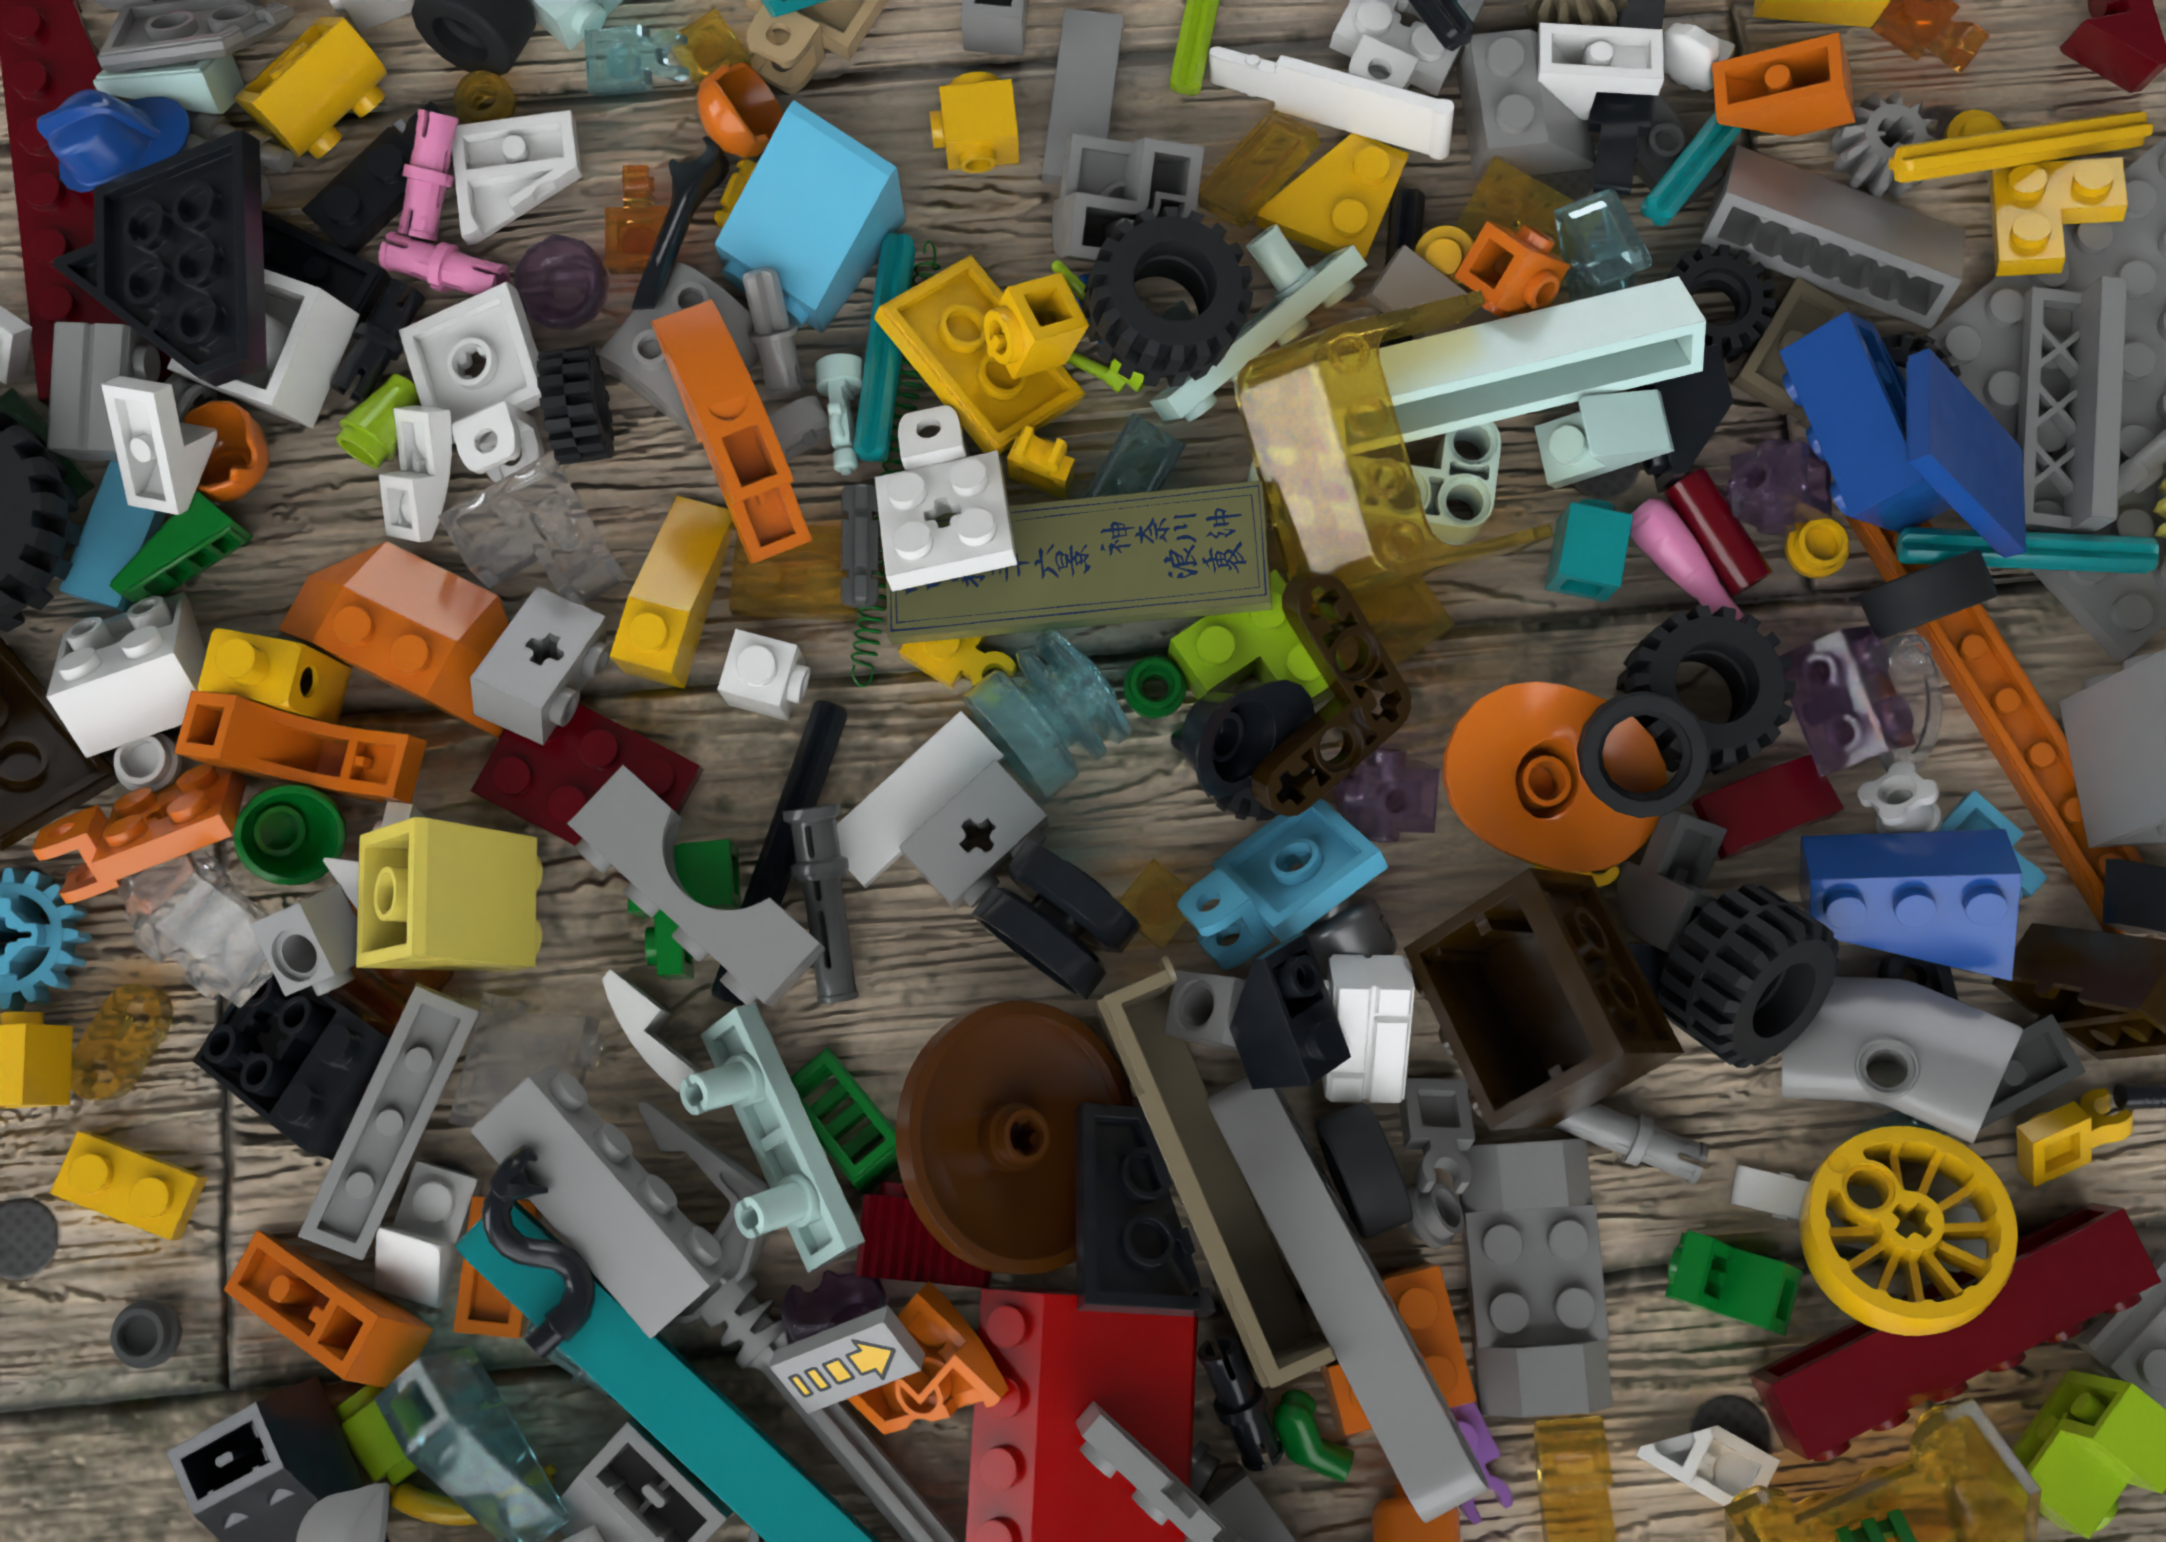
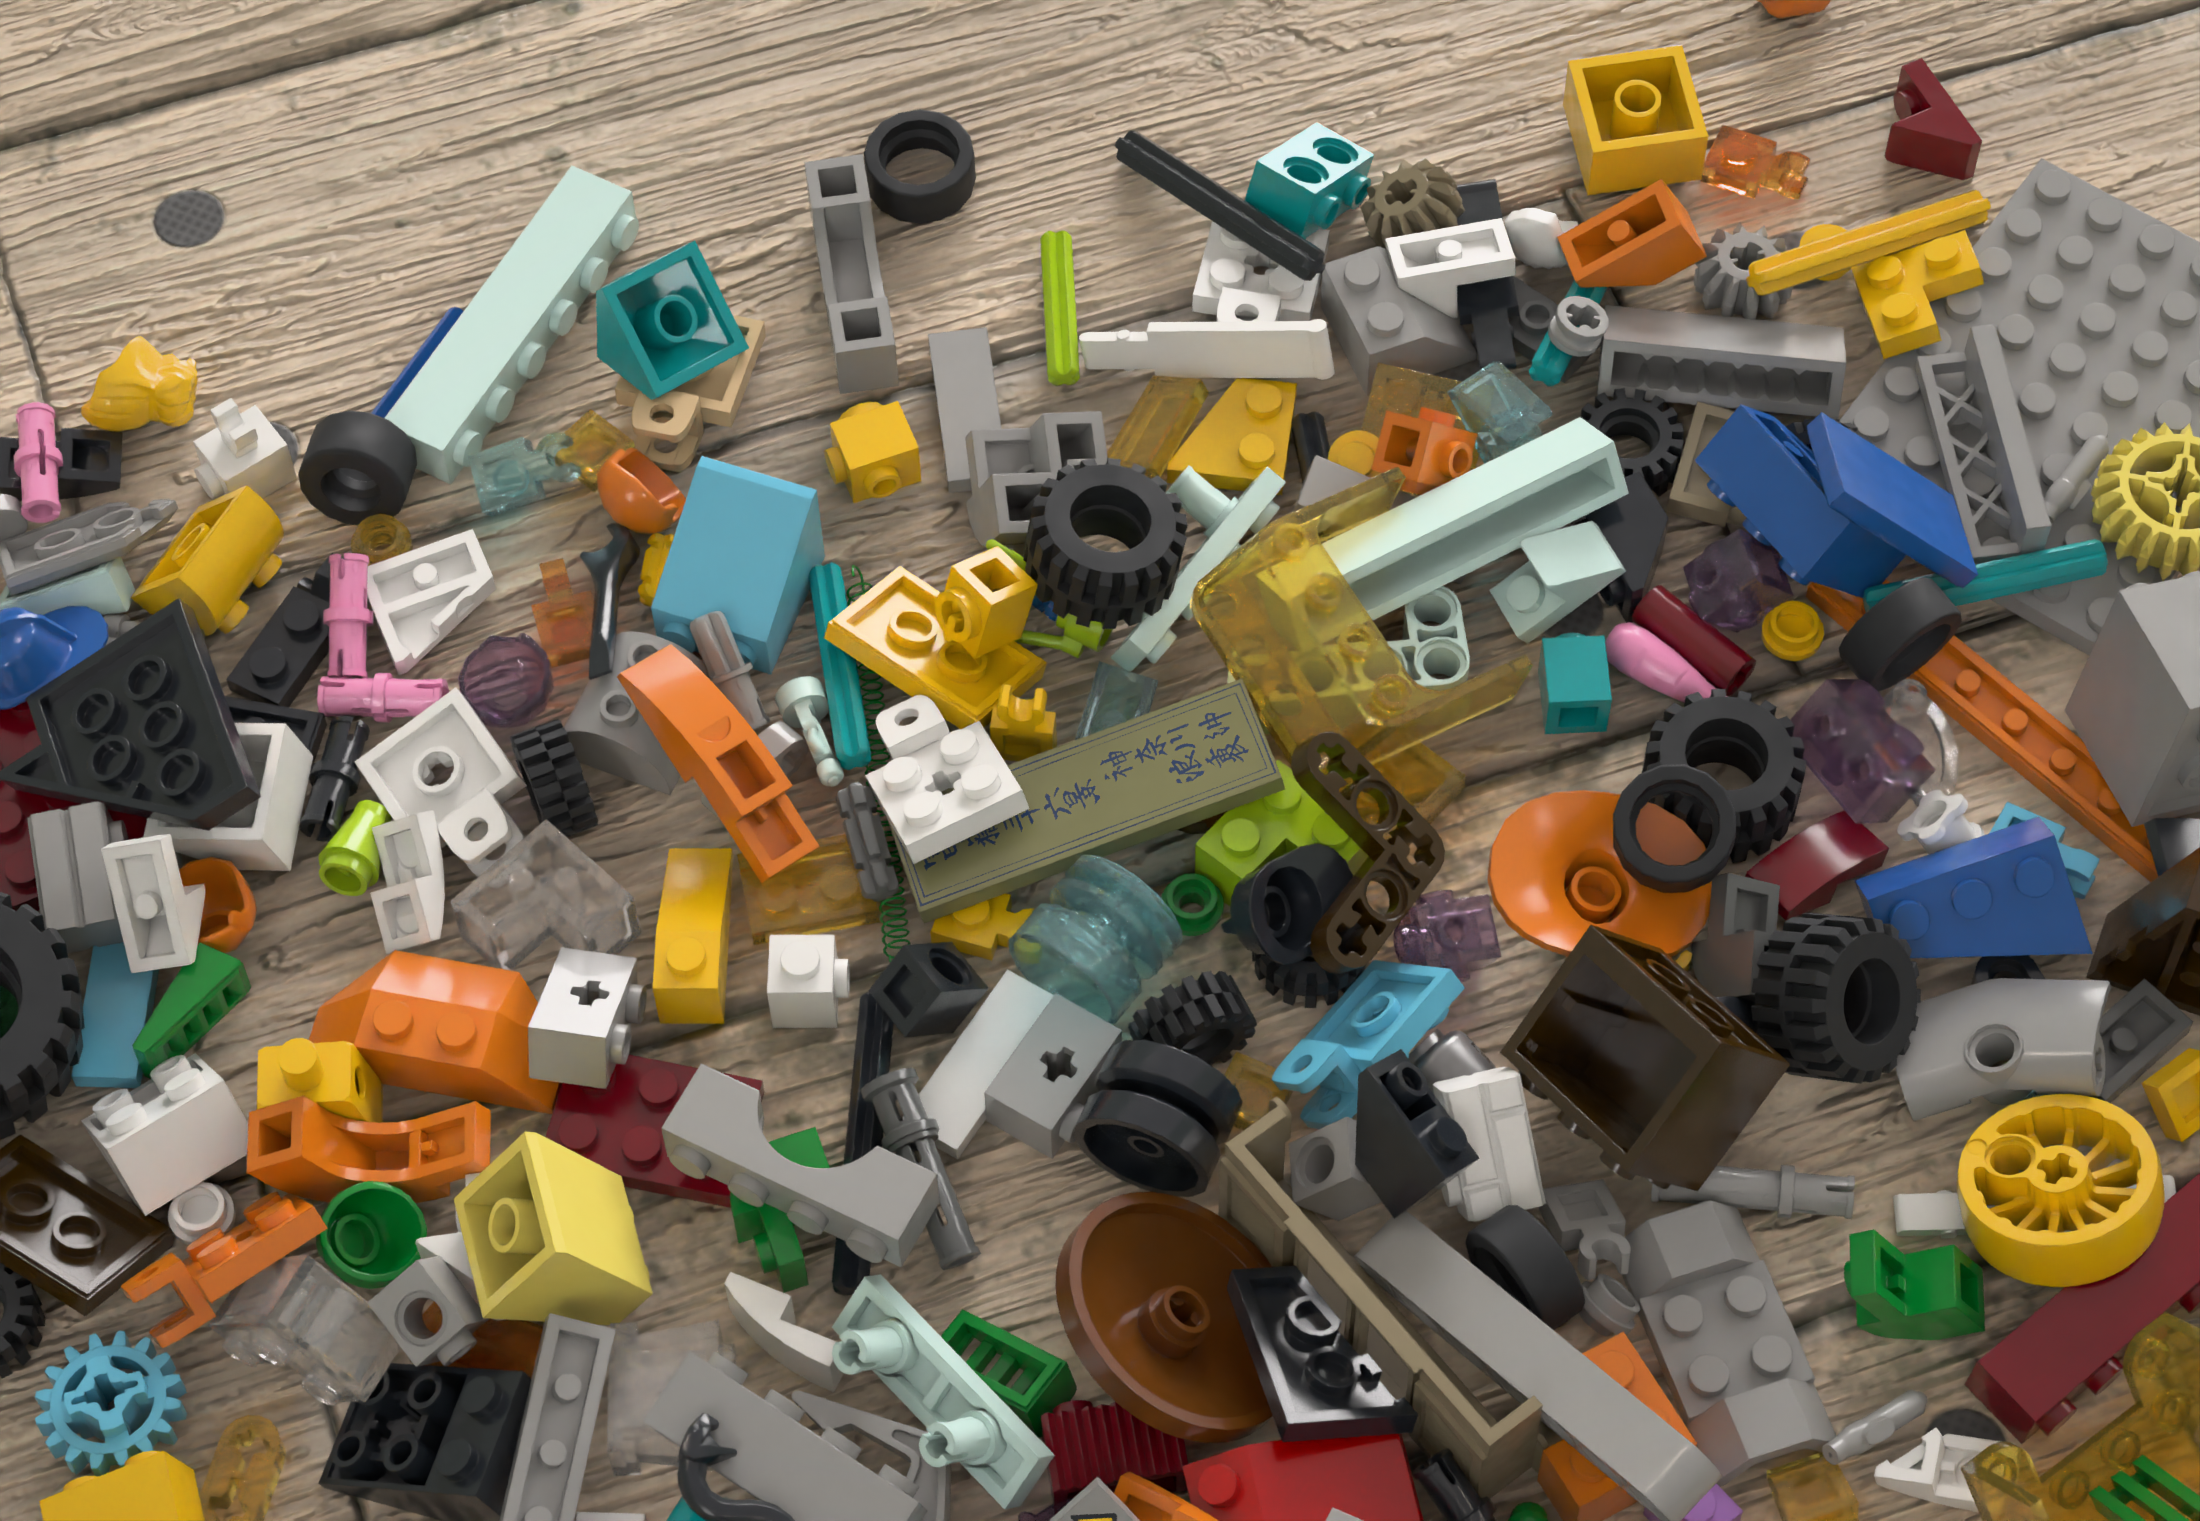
camera: 10 degrees left, 20 degrees down
(876, 718) = (928, 989): none -> black brick
(1117, 826) = (1198, 1017): none -> black tyre
(1653, 1406) = (1875, 1427): none -> light grey piece
(1717, 159) = (1581, 312): none -> light grey bush

